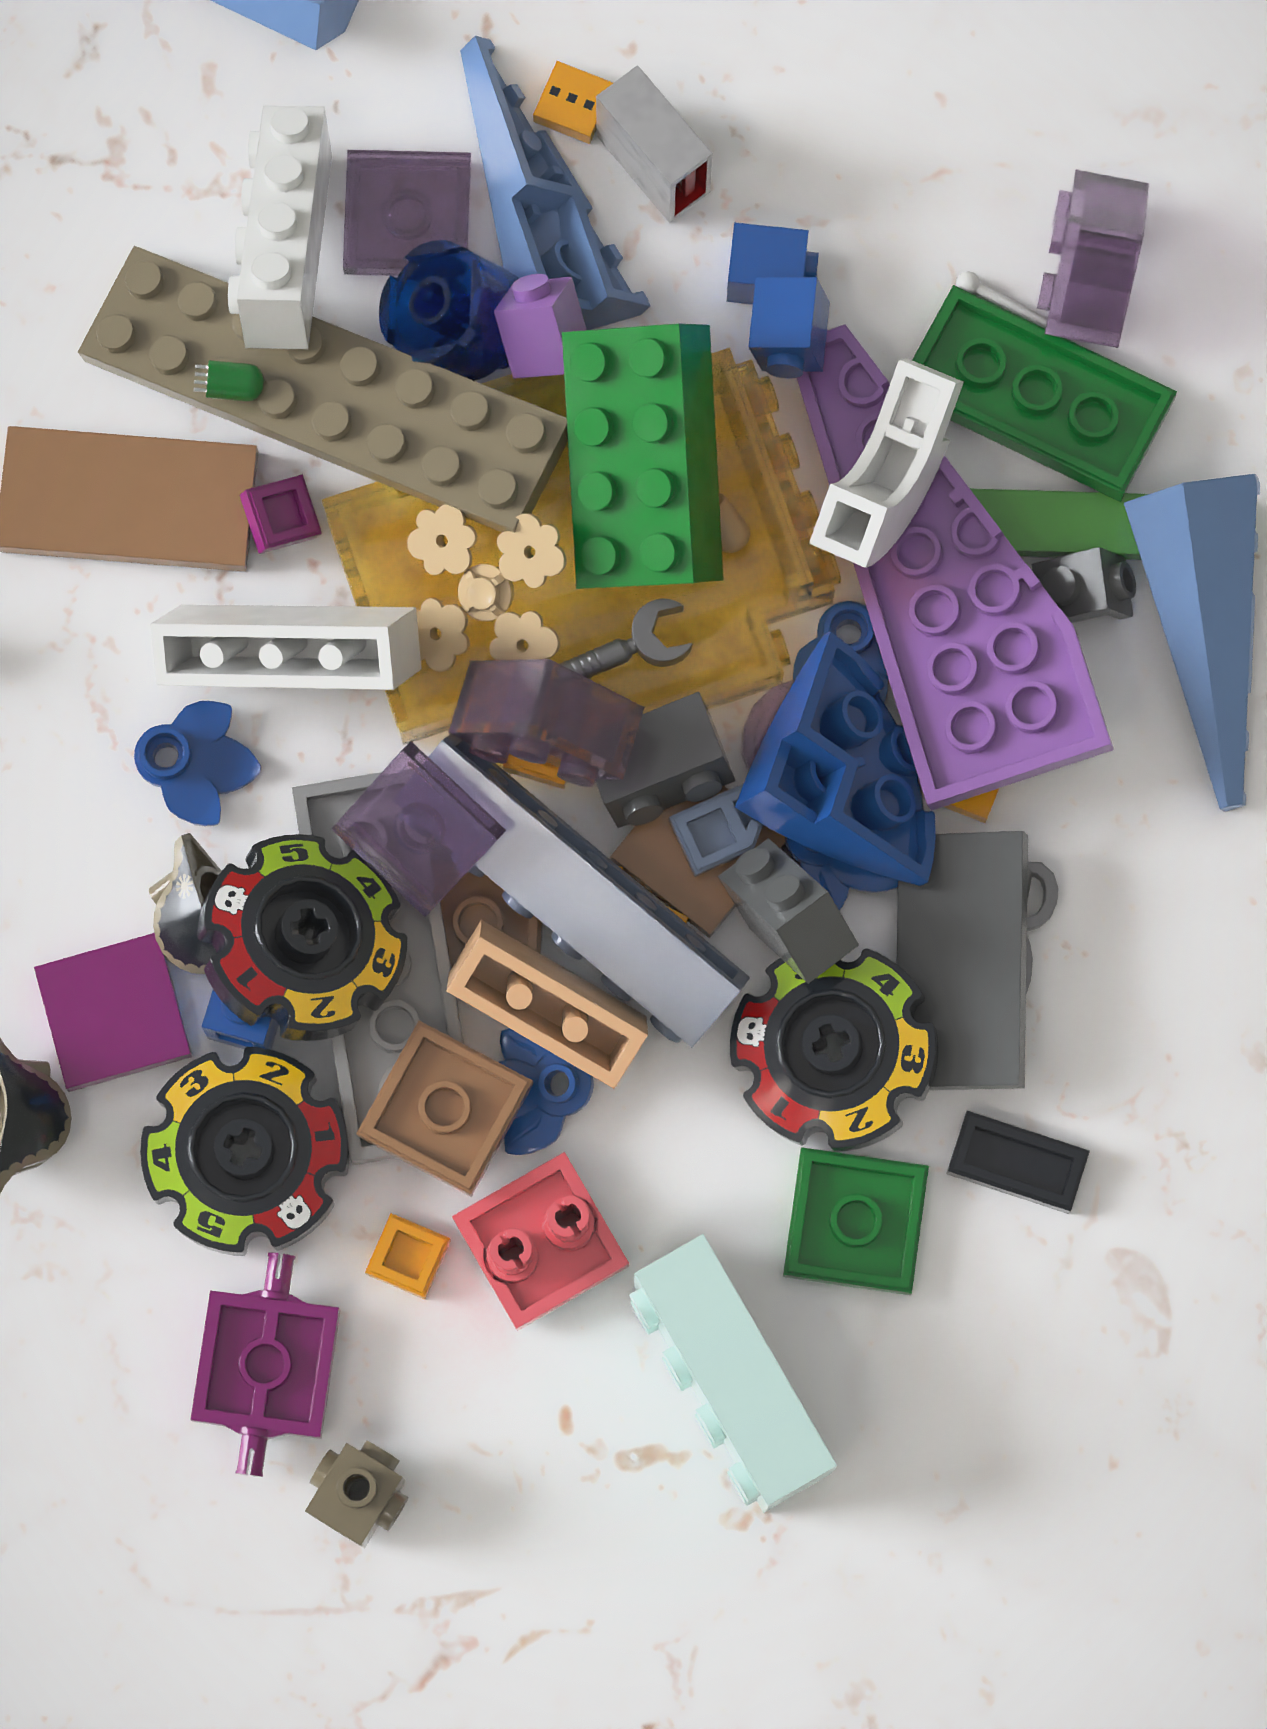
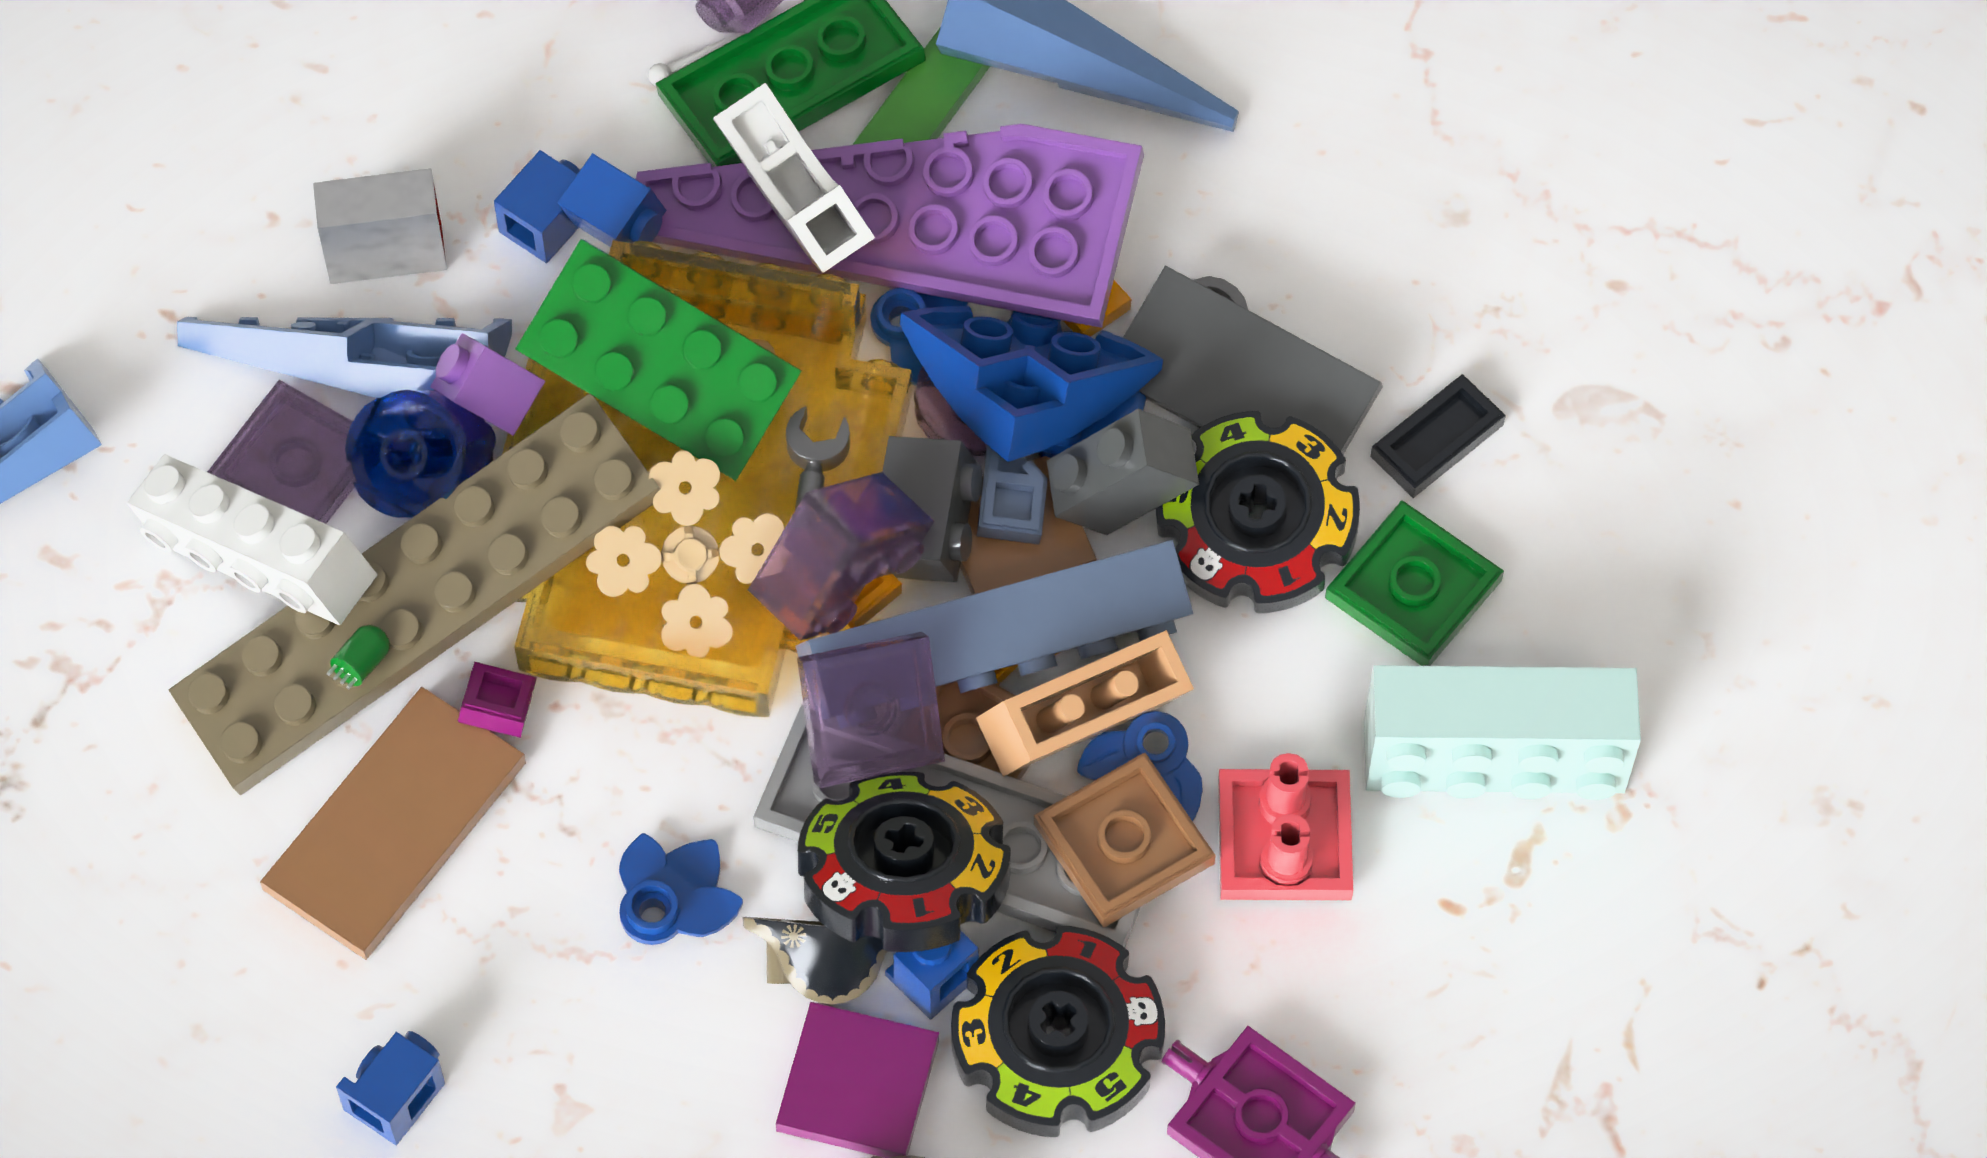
camera: 60 degrees left, 15 degrees down
(286, 646) = (632, 737): white brick -> none
(357, 1518) = (1425, 1095): dark tan brick -> none
(407, 1256) = (1231, 954): light orange tile -> none
(570, 102) = (290, 281): light orange tile -> none
(1089, 584) = (982, 109): dark grey bracket -> none

